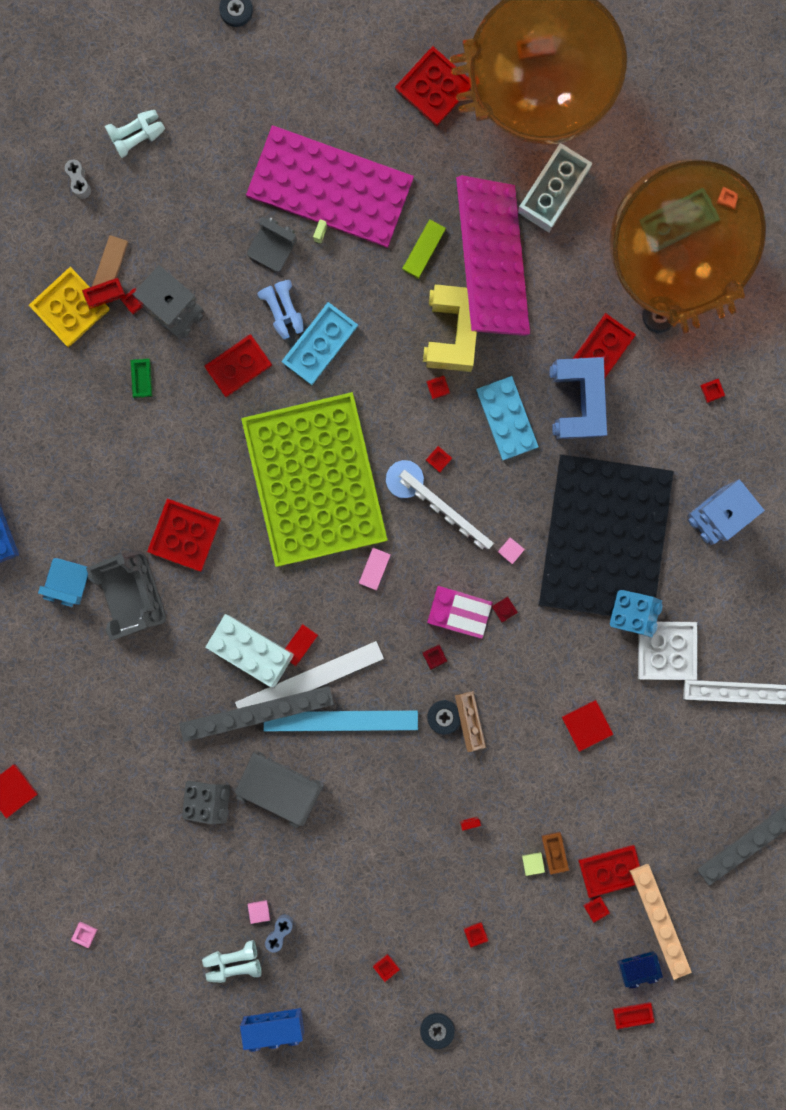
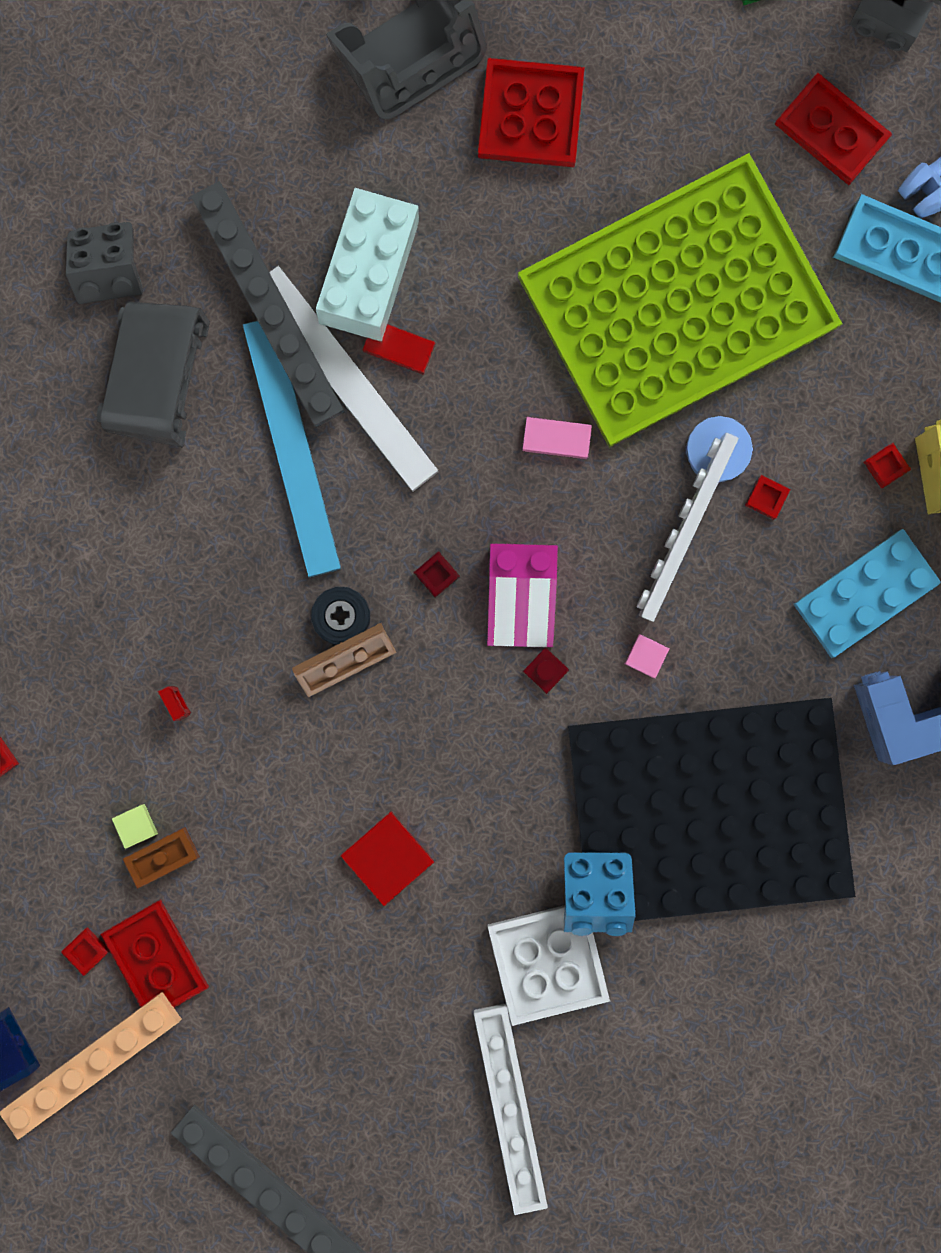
camera: 75 degrees right, 0 degrees up
(725, 513) = (815, 1007): medium blue piece -> none

